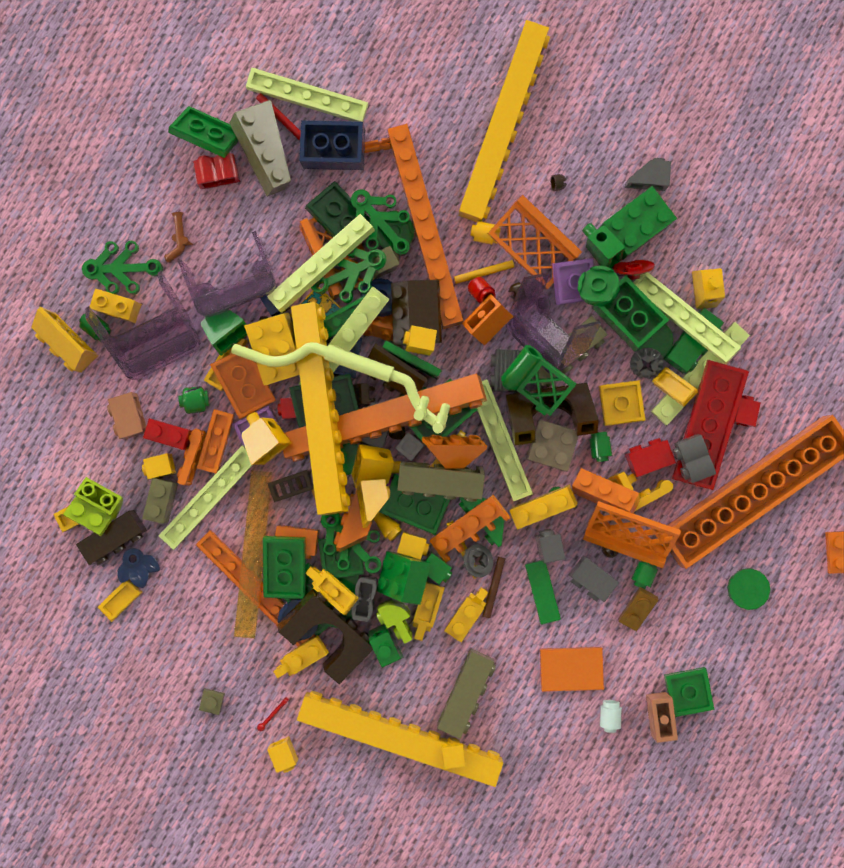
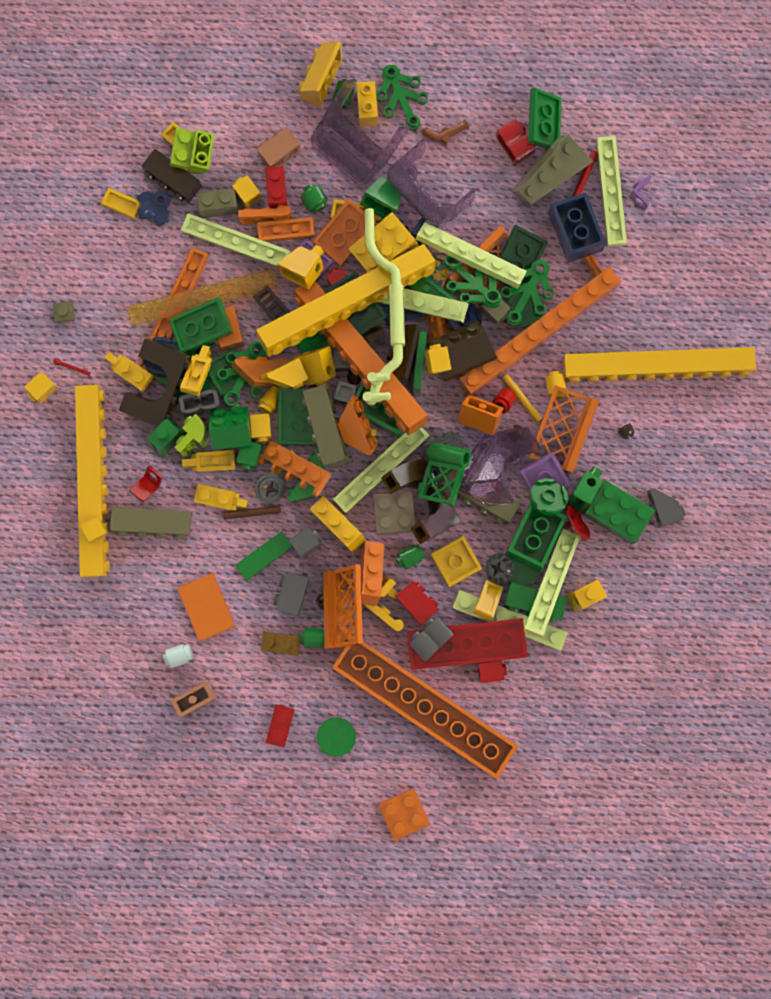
camera: 65 degrees right, 5 degrees down
(321, 72) = (635, 193): none -> medium lavender bracket
(426, 684) = (146, 485): none -> red bracket
(689, 691) = (225, 717): green plate -> none
(717, 640) = (280, 725): none -> red plate

